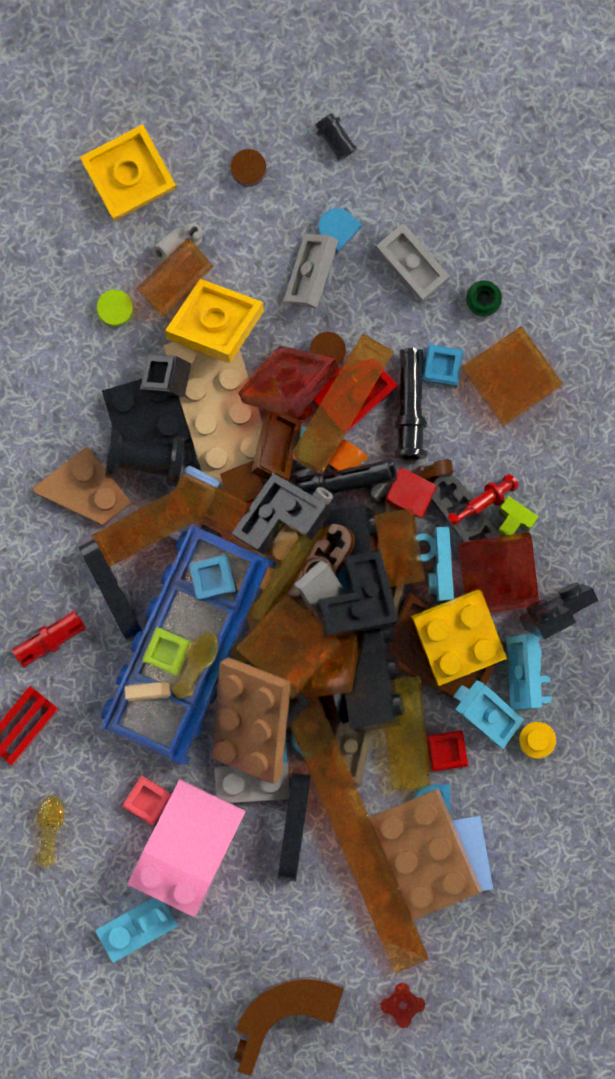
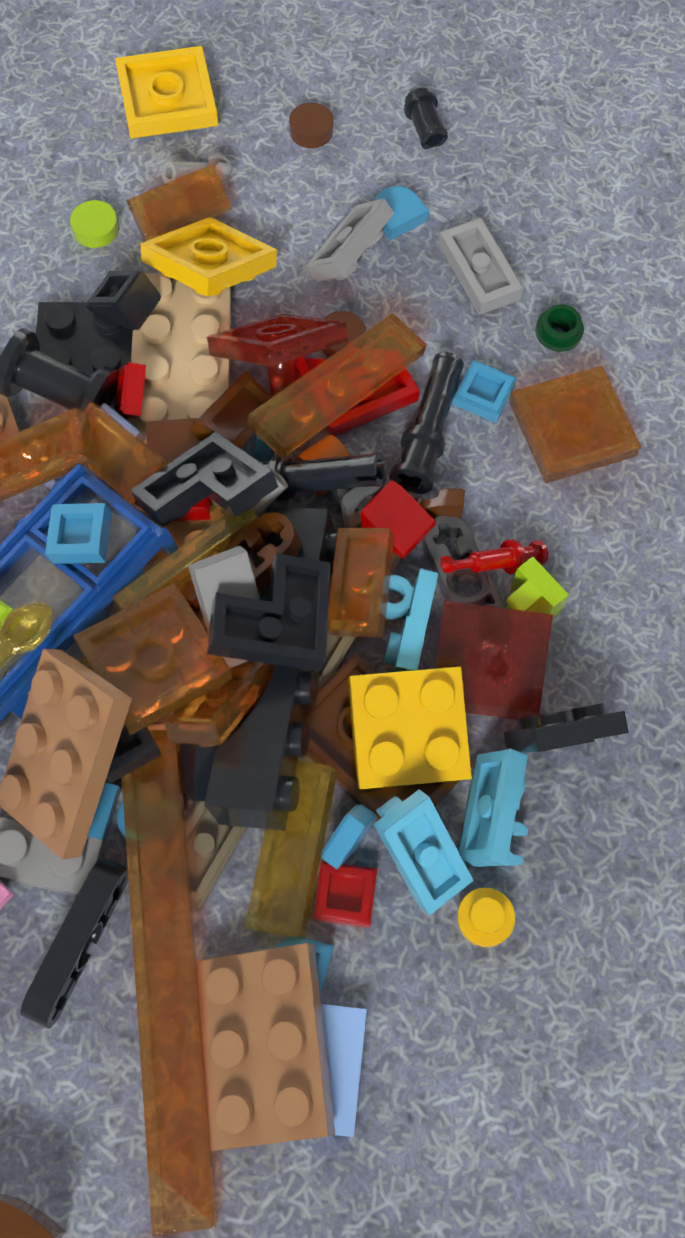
camera: 10 degrees right, 15 degrees down
(197, 448) = (130, 390): none -> red tile
(439, 715) = (348, 835): none -> dark azure tile

